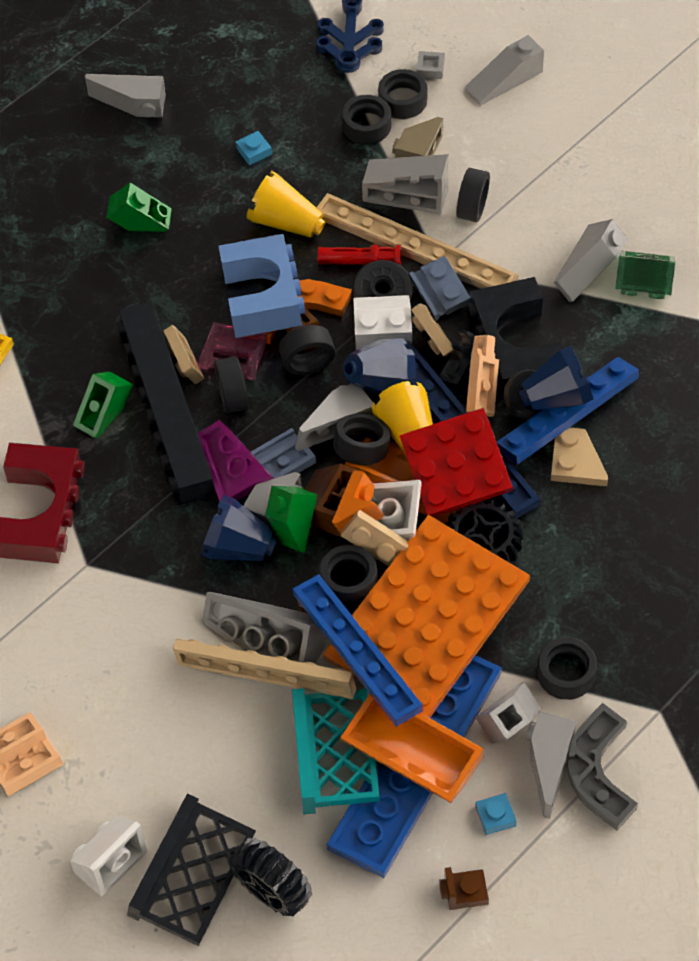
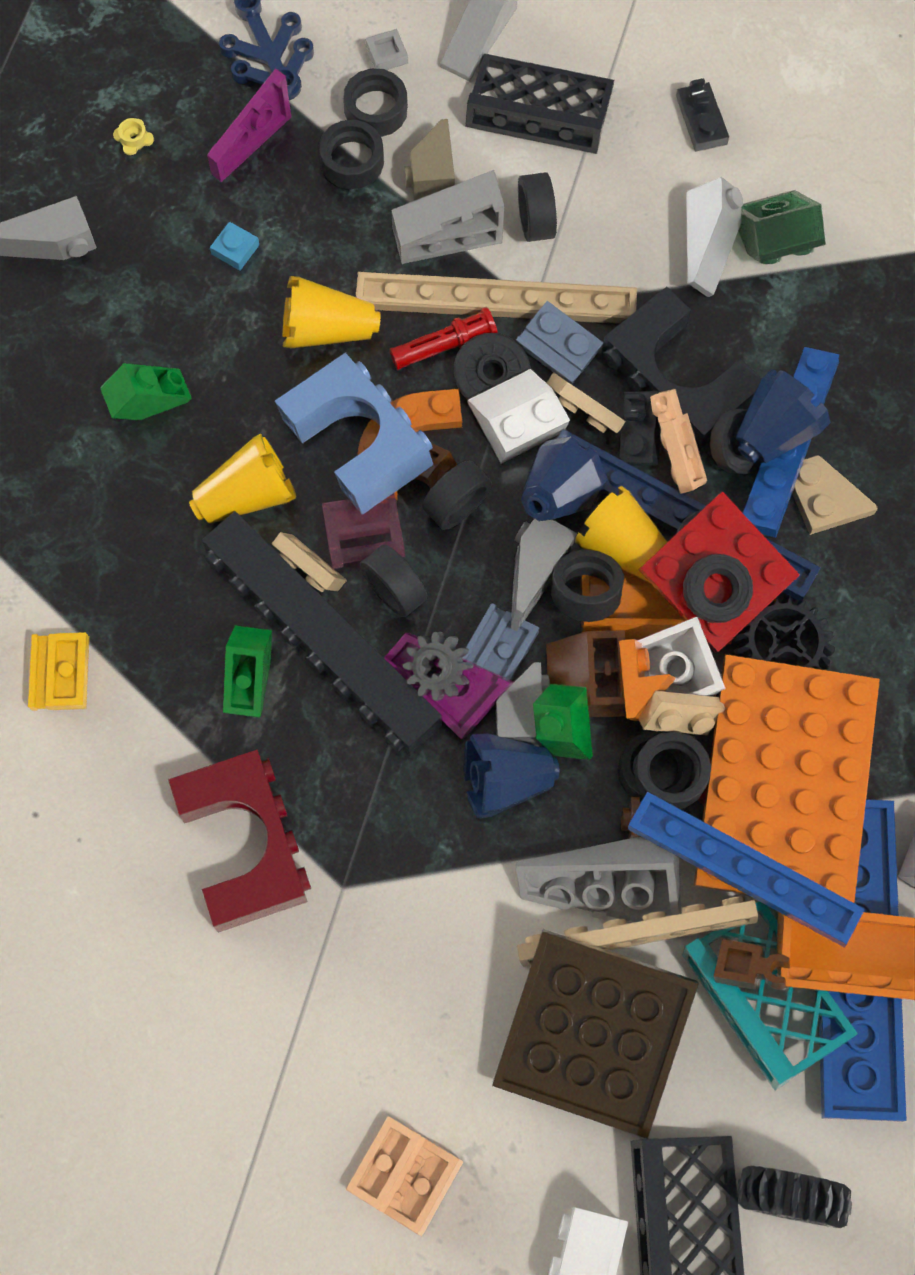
camera: 30 degrees left, 15 degrees up
(169, 288) = (243, 484): none -> yellow cone
(196, 715) = (595, 1033): none -> dark brown plate
(226, 57) = (130, 128): none -> light yellow plate
(226, 443) = (450, 662): none -> dark grey gear
(307, 77) = (254, 125): none -> magenta wing
(324, 712) = (744, 964): none -> reddish brown plate
(440, 449) = (741, 588): none -> black tyre
(513, 145) = (537, 121): none -> black fence
(634, 184) = (702, 115): none -> black plate

